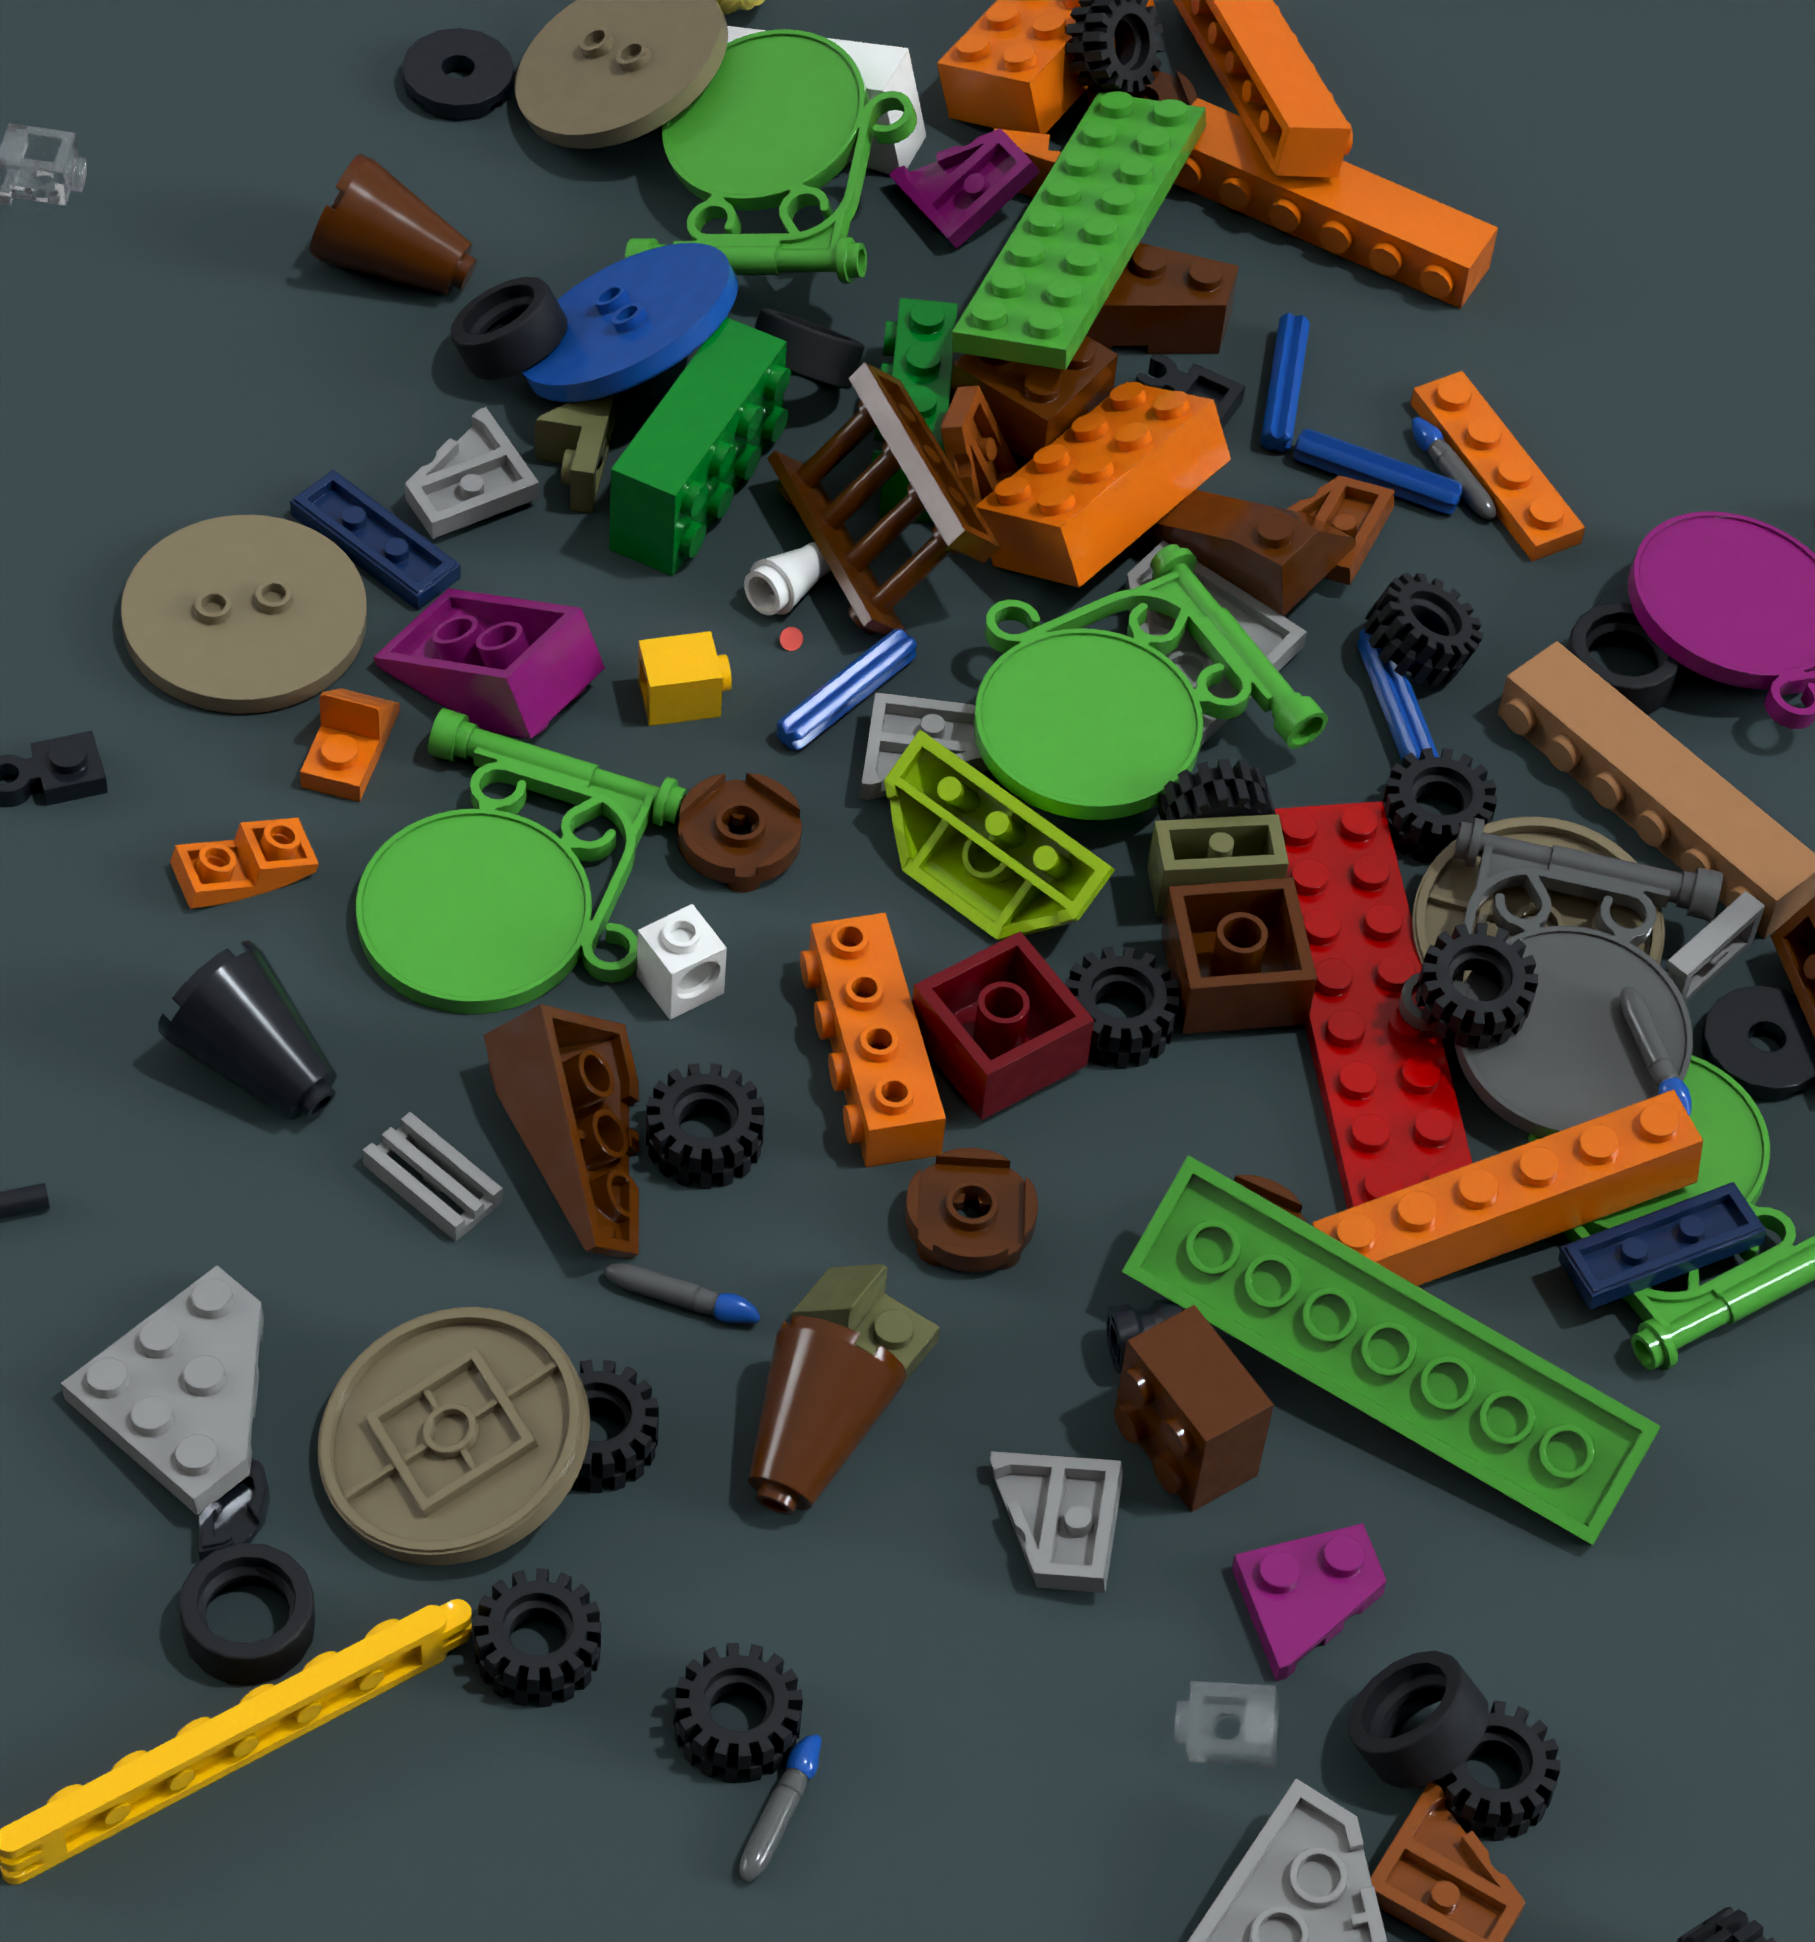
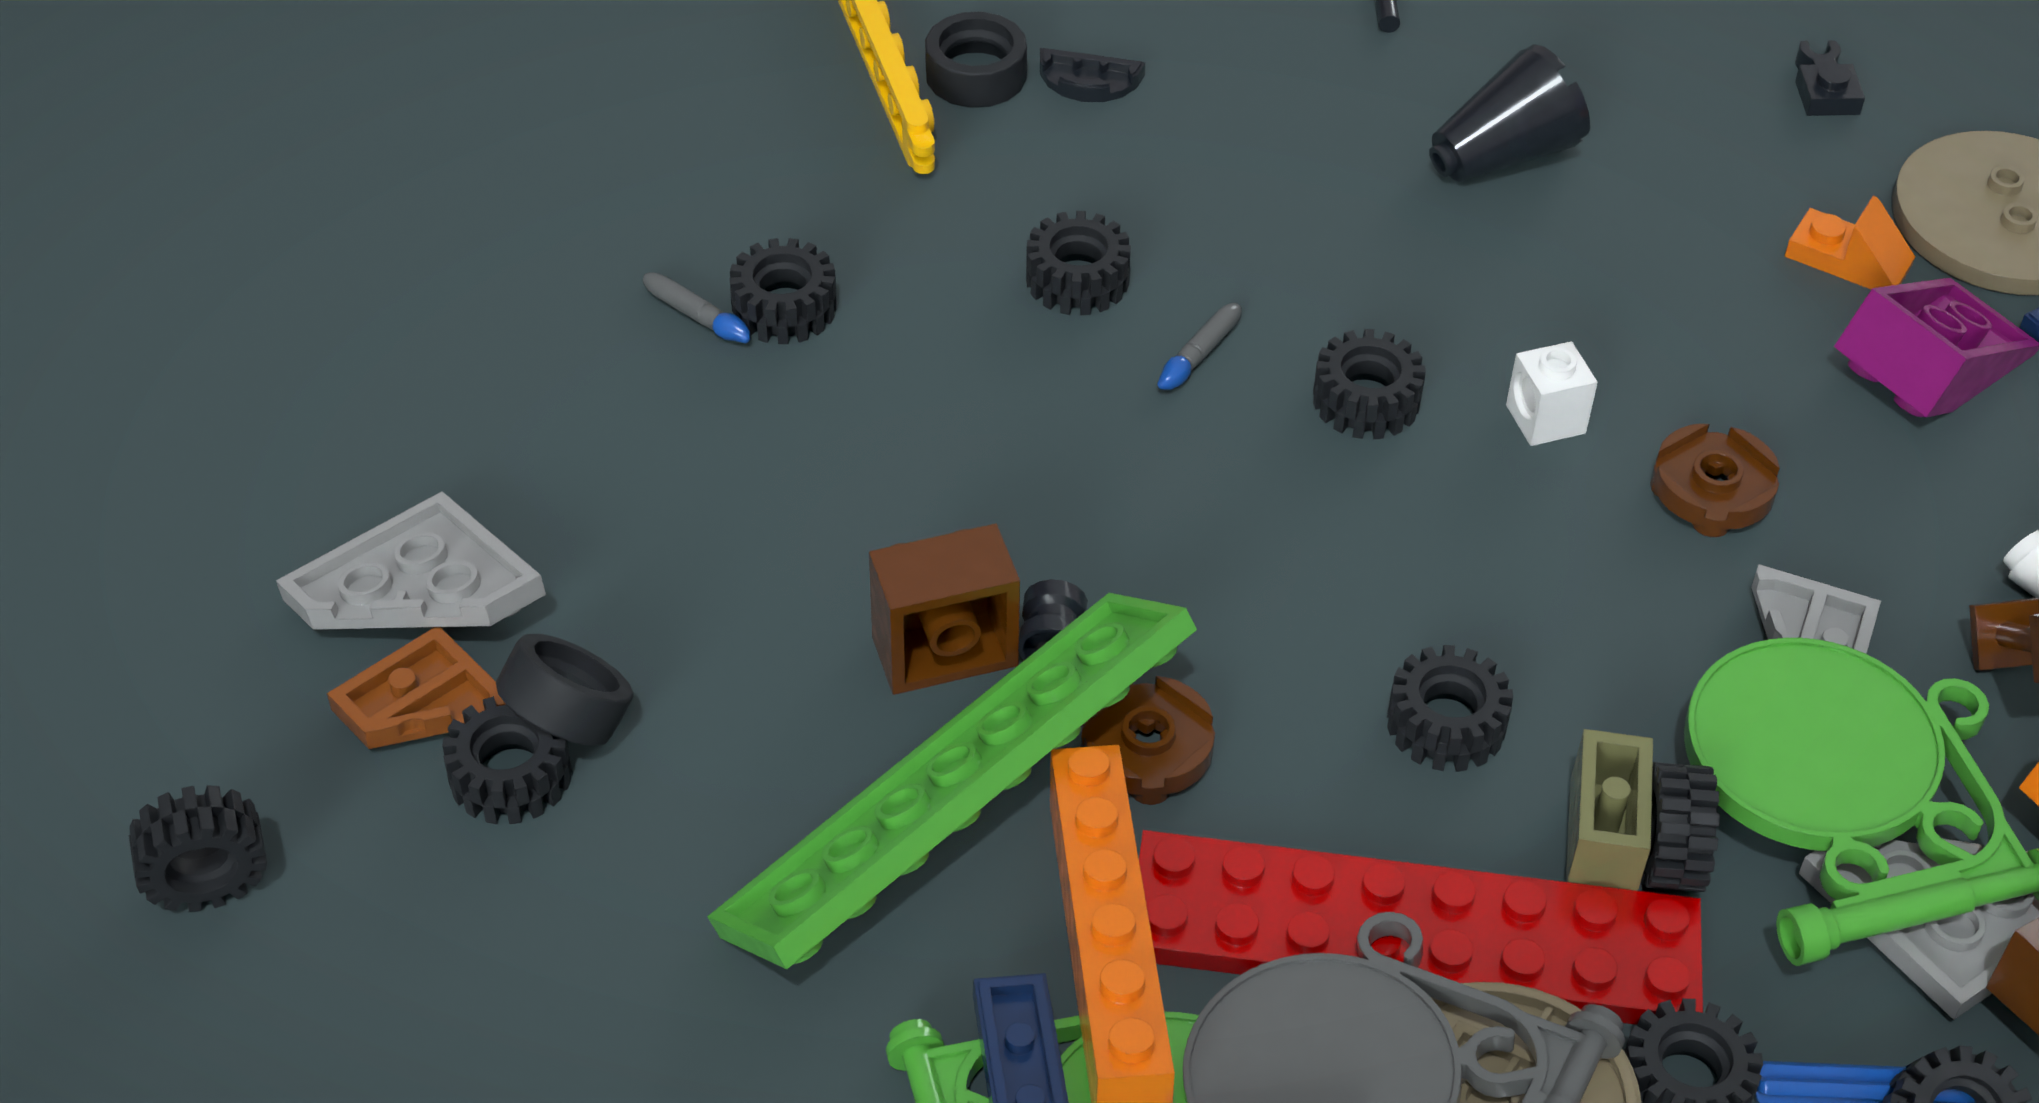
camera: 110 degrees right, 5 degrees down
(182, 1389) = (1186, 56): light grey plate -> none
(255, 862) = (1711, 166): orange slope -> none
(398, 1141) = (1353, 217): light grey tile -> none
(453, 1436) = (1087, 171): dark tan plate -> none
(491, 905) = (1670, 298): bright green piece -> none
(537, 1602) = (899, 218): black tyre -> none
(569, 1098) = (1419, 294): reddish brown wedge -> none
(682, 678) = (1909, 465): yellow brick -> none
(791, 638) = (1975, 578): coral piece -> none
(816, 1410) = (1043, 375): reddish brown cone -> none
(846, 689) = (1900, 599): blue axle -> none
(858, 1301) = (1133, 453): olive slope -> none
(873, 1040) = (1442, 511): orange brick -> none
(963, 1242) = (1232, 570): reddish brown plate -> none
(985, 846) = (1664, 646): lime wedge -> none
(1002, 1025) = (1429, 585): dark red brick -> none
(1061, 1515) = (866, 520): light grey wing -> none
(1238, 955) = (1485, 795): reddish brown brick -> none
(1250, 1704) = (629, 579): clear brick -> none
(1307, 1591) = (750, 686): magenta wing -> none
(1480, 954) = (1379, 994): black tyre -> none

